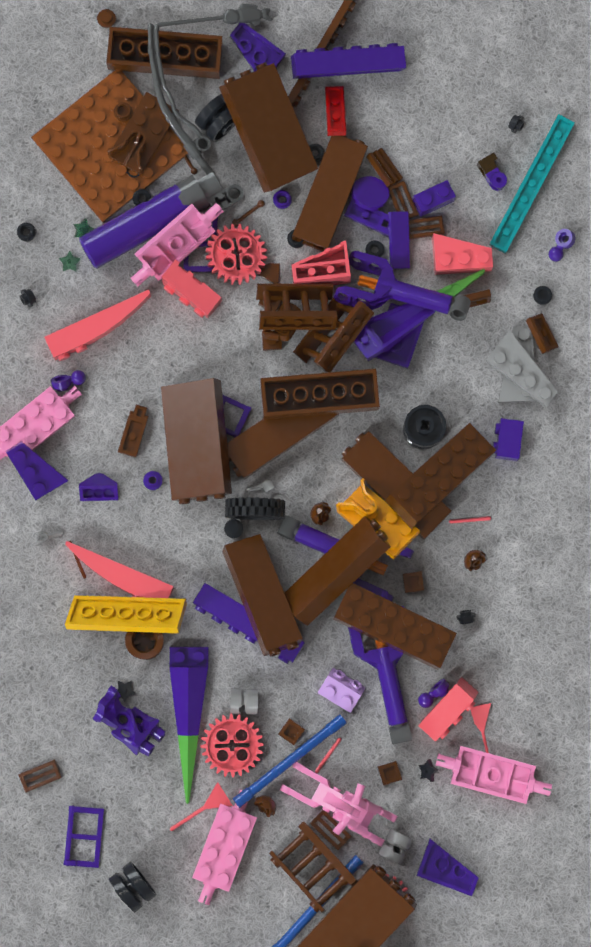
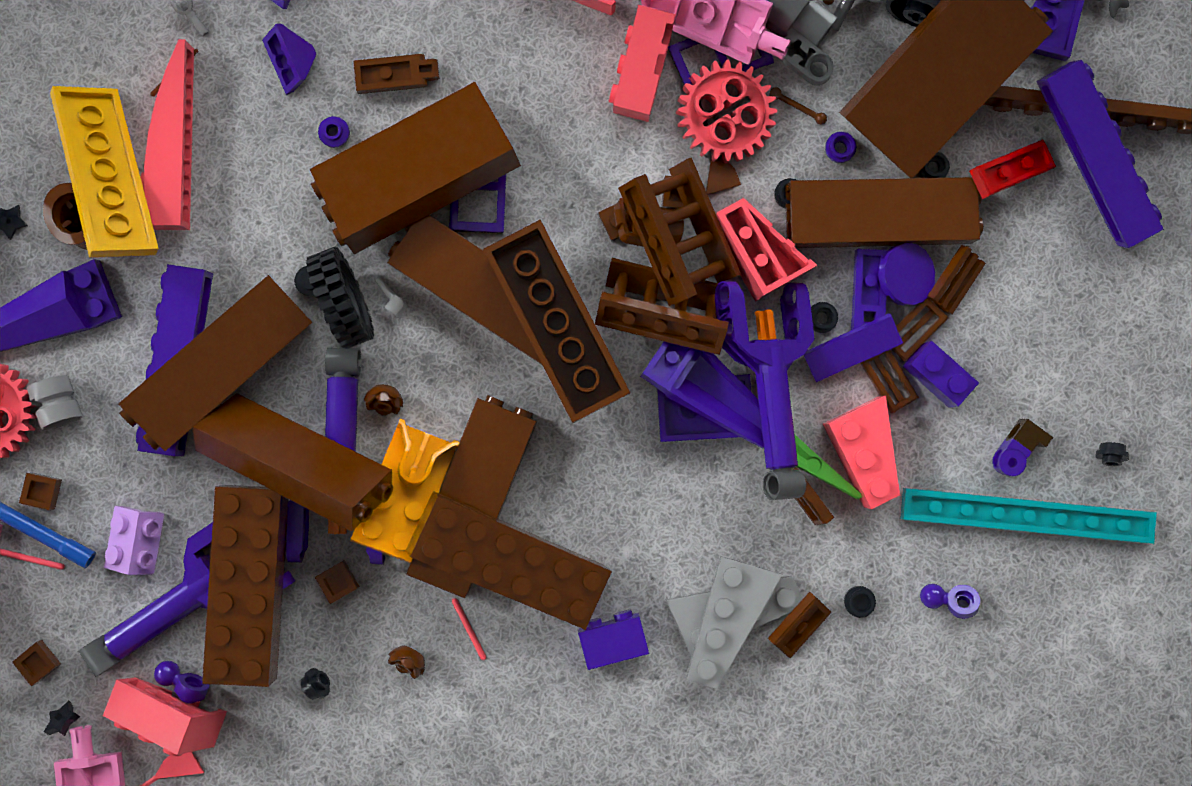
camera: 75 degrees right, 5 degrees up
(427, 416) = (572, 522): black wheel -> none

